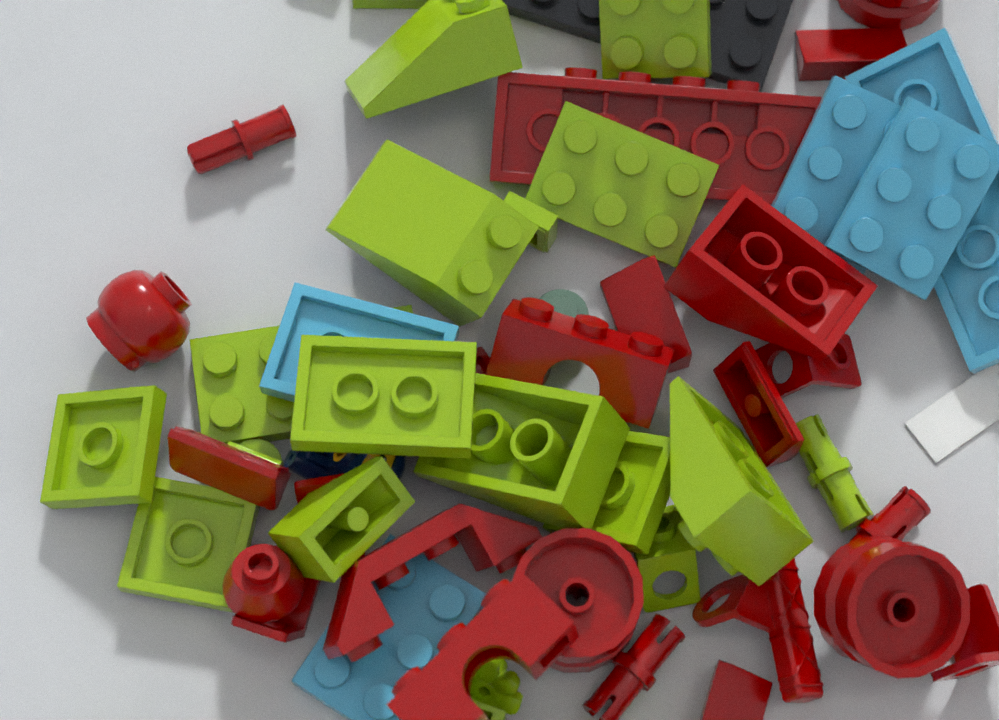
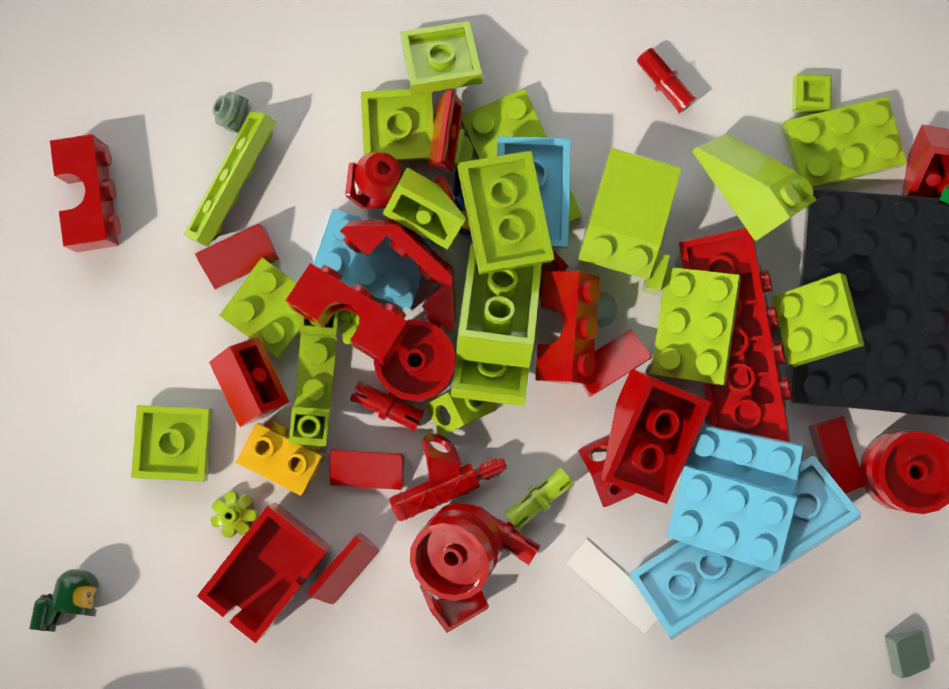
camera: 80 degrees right, 15 degrees up
(141, 318) = (526, 53): red piece -> none
(727, 491) = (503, 435): lime slope -> none
(759, 406) = (568, 444): red slope -> none

